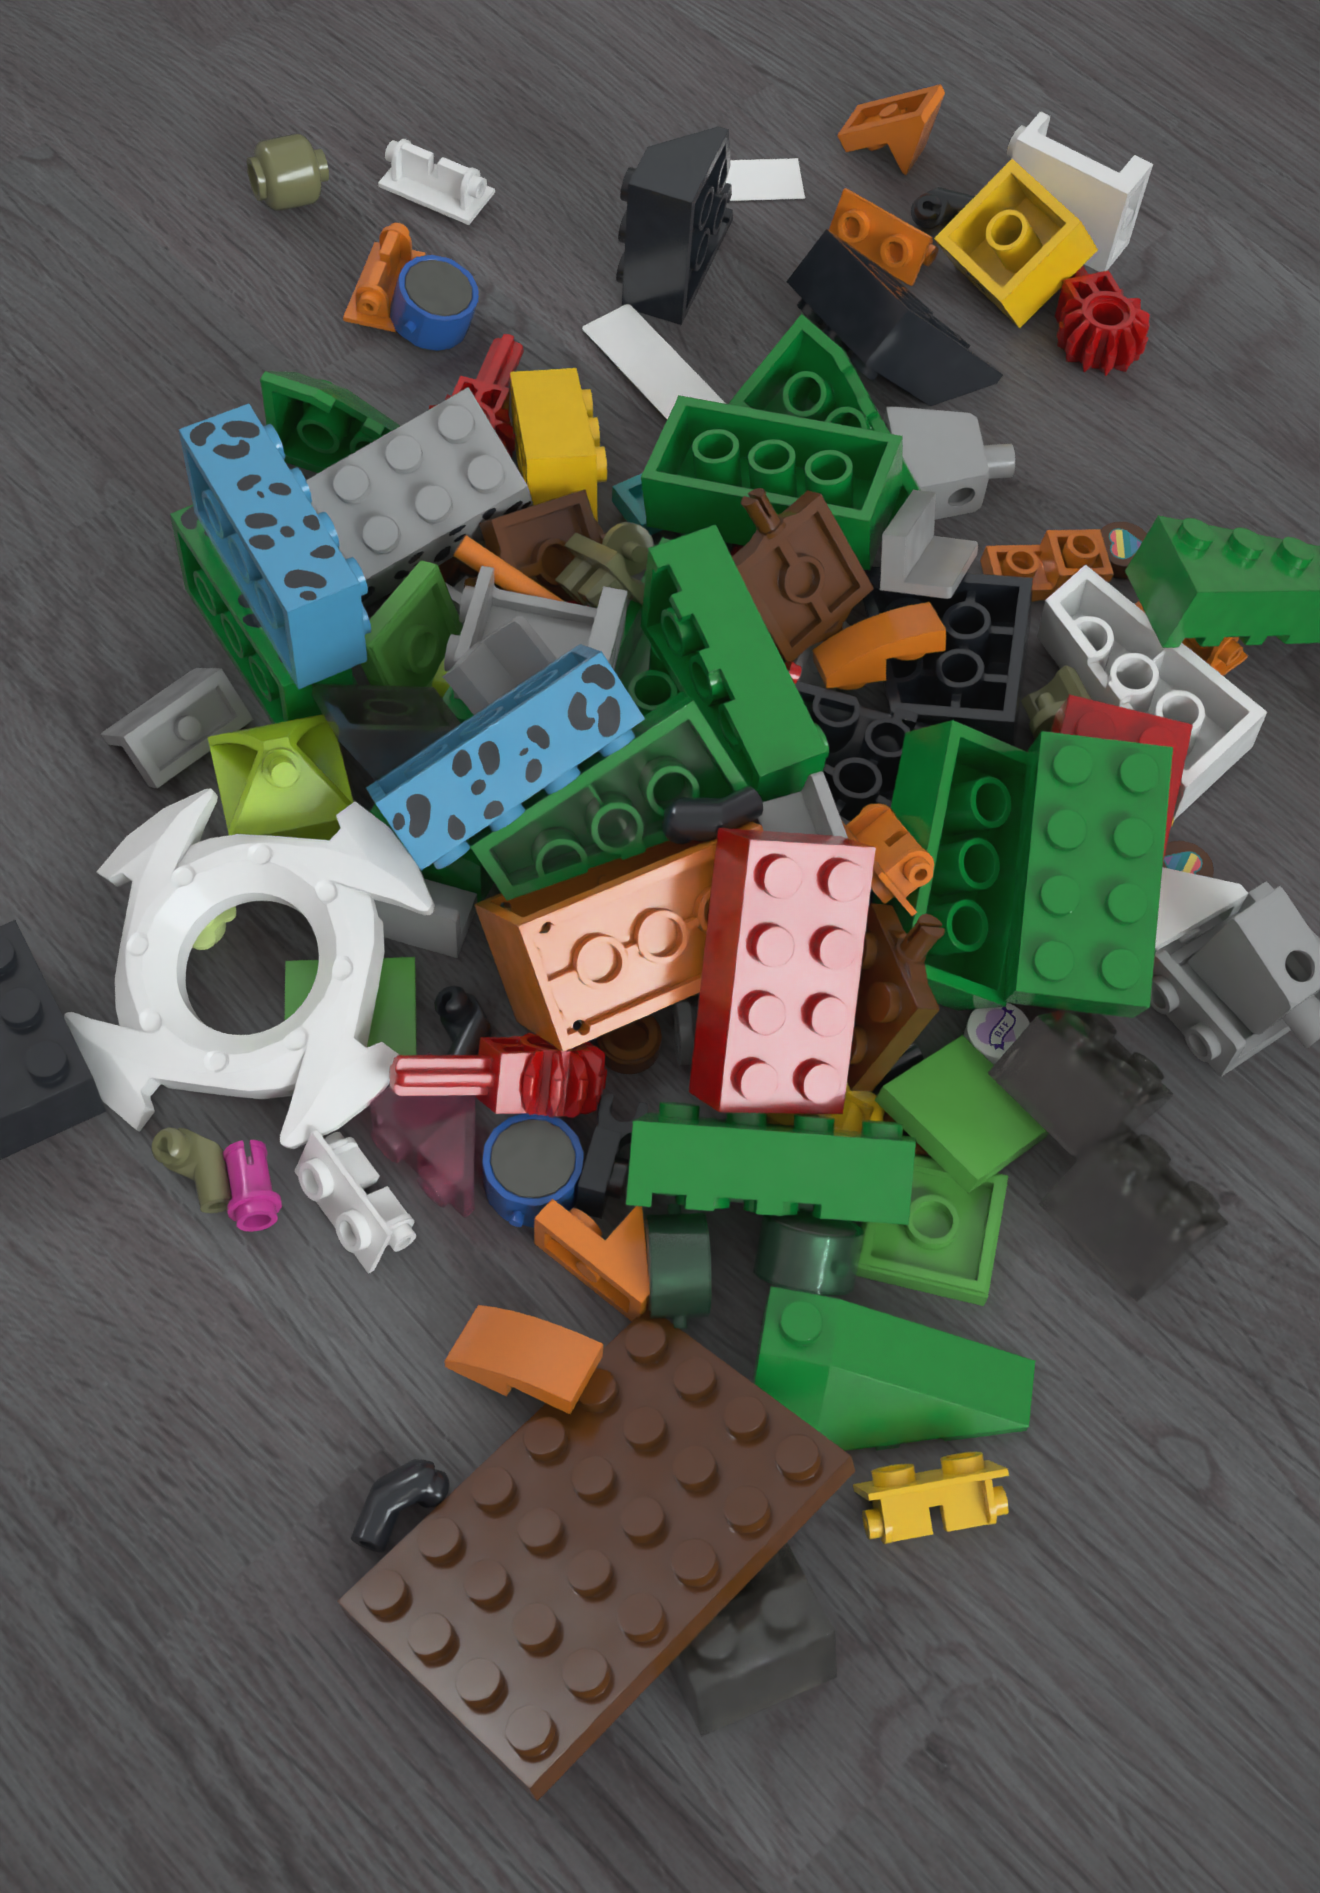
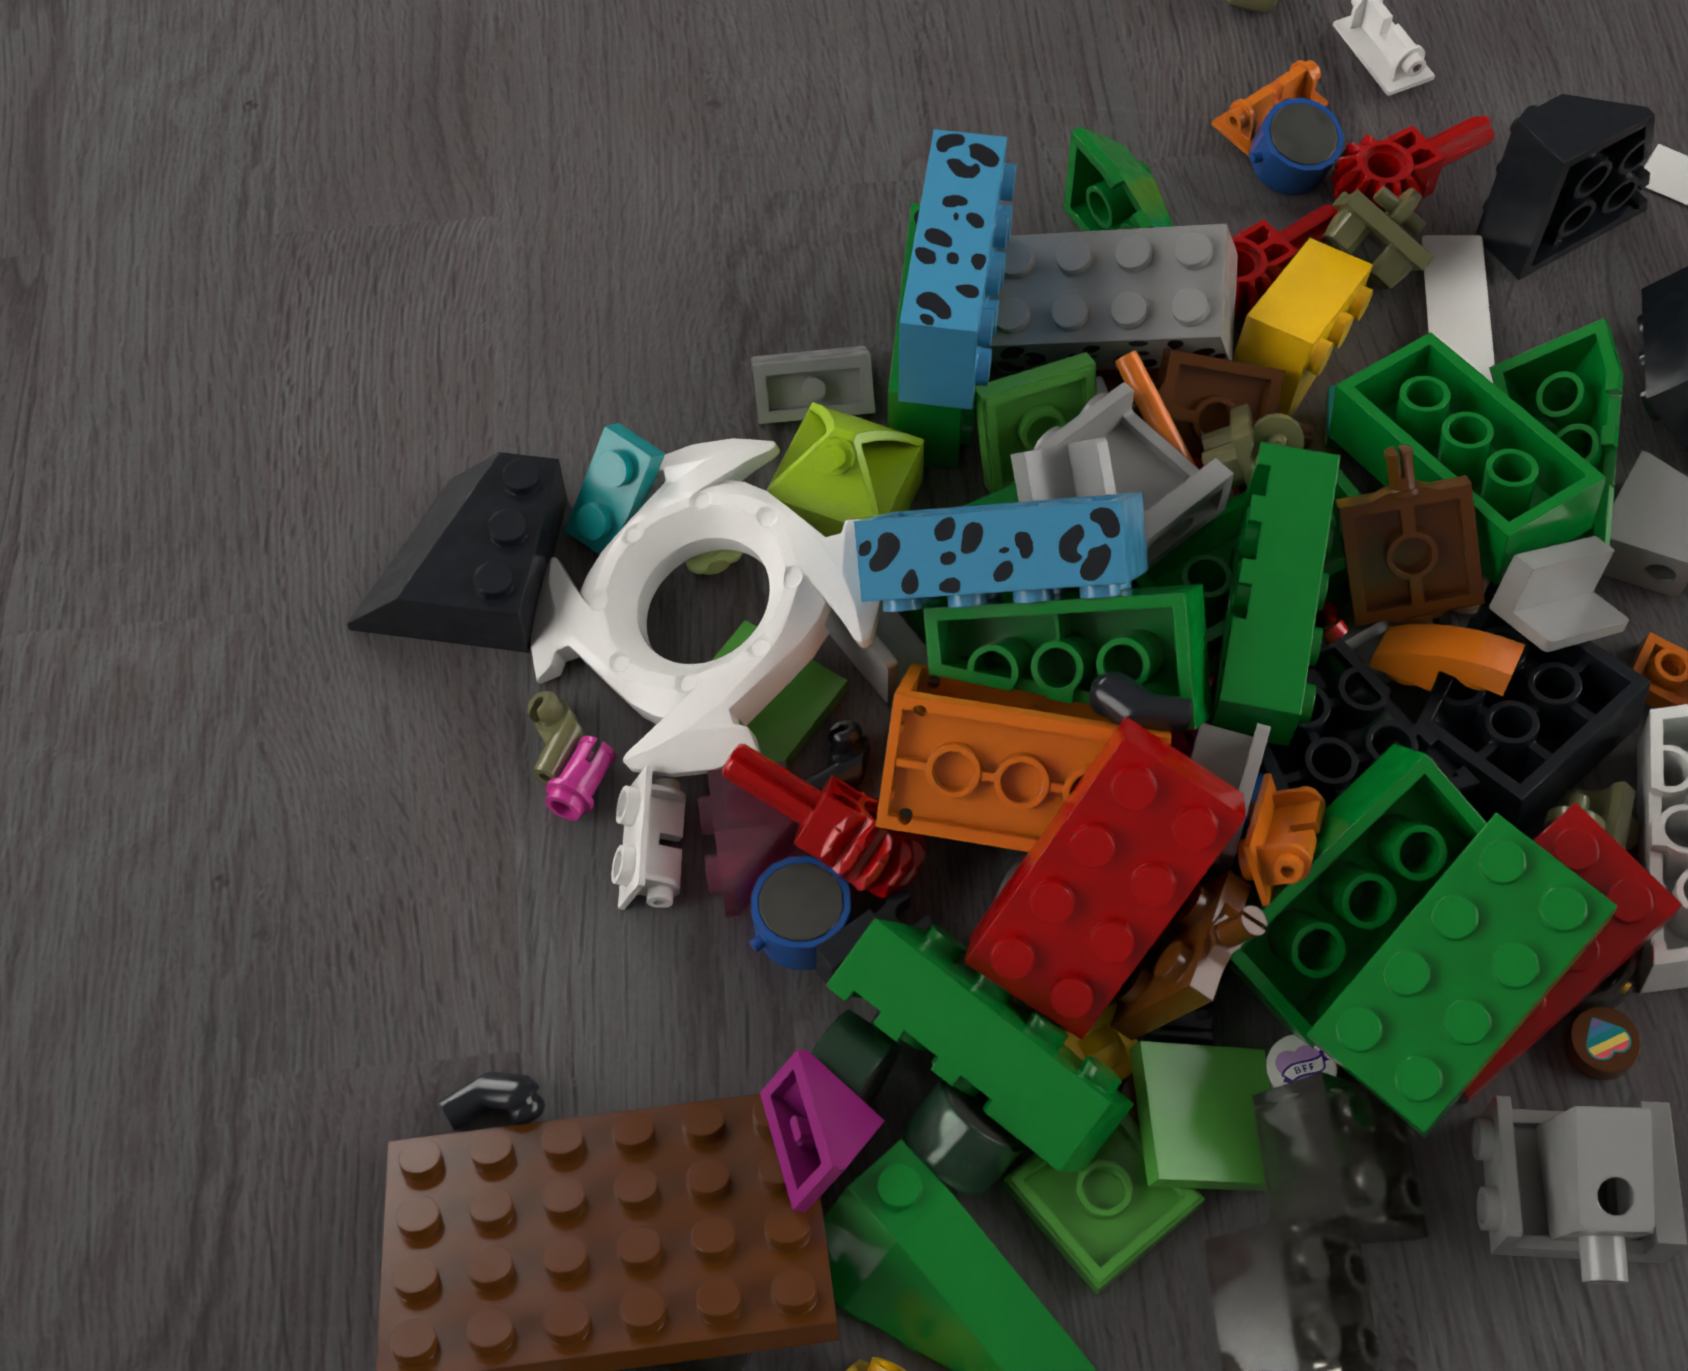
camera: 45 degrees right, 0 degrees up
(84, 918) = (613, 486): none -> teal plate
(384, 722) = (944, 466): clear smoke slope -> none
(525, 1353) = (671, 1058): orange slope -> none
(527, 287) = (1406, 159): none -> red gear
(563, 329) = (1362, 218): none -> olive hips
(609, 1267) = (795, 1017): orange slope -> none
(632, 1046) = (969, 867): reddish brown tile -> none
(703, 1323) = (814, 1126): none -> magenta slope
(1192, 906) = (1561, 1073): white slope -> none

